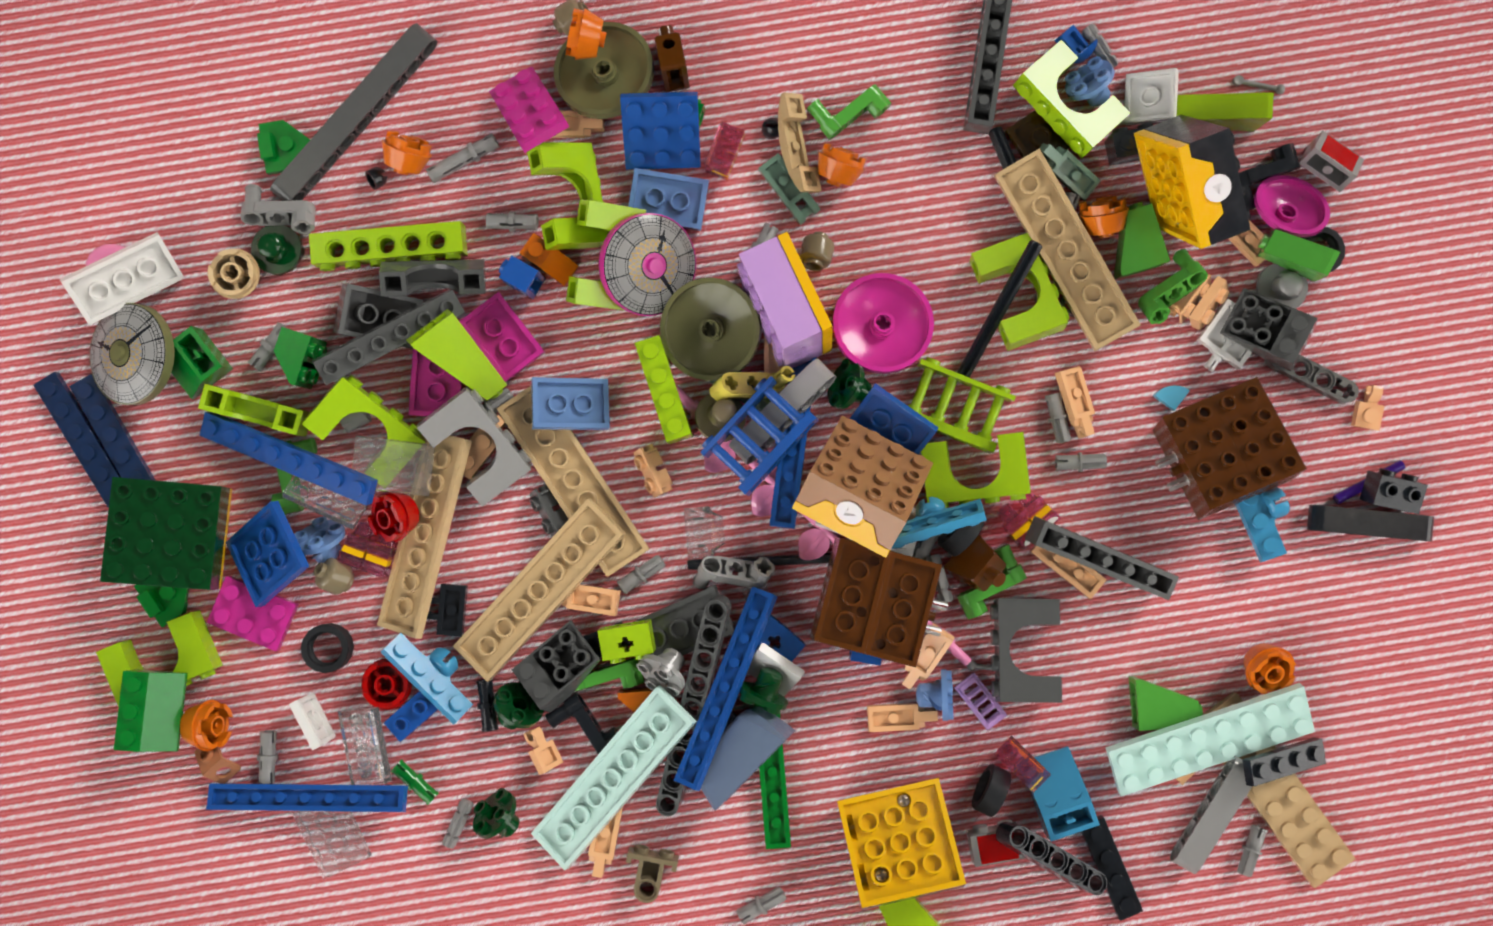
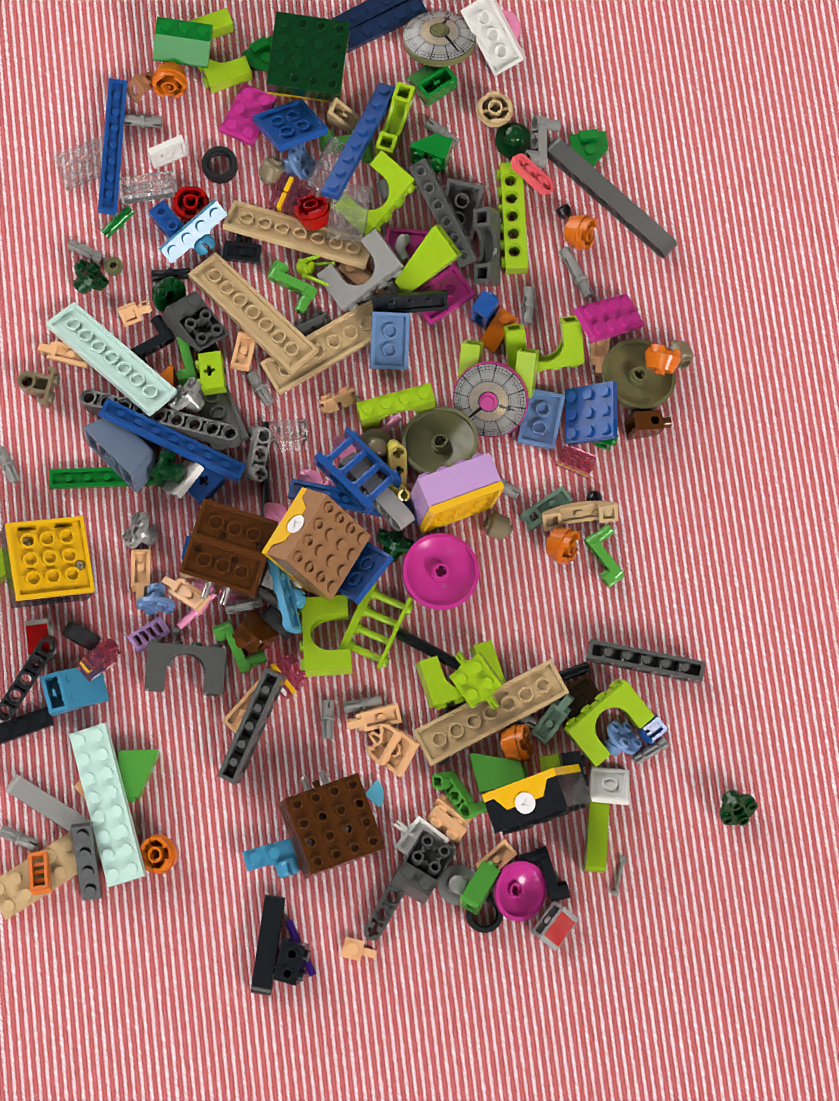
camera: 90 degrees right, 10 degrees down
(250, 483) = (342, 116): none -> tan slope
(326, 219) = (532, 174): none -> coral plate
(435, 394) = (400, 245): none -> light grey arm
(469, 518) = (306, 267): none -> lime plant
(482, 559) = (279, 276): none -> bright green beam
(483, 777) = (113, 271): none -> olive plate
(516, 377) = (411, 302): none -> black plate
(846, 722) = (140, 531): none -> light grey plate
(1034, 267) = (476, 680): none -> lime plate
(1116, 376) = (392, 748): none -> light nougat plate
(1123, 175) = (549, 761): none -> lime plate
(1309, 829) = (42, 889): none -> orange slope

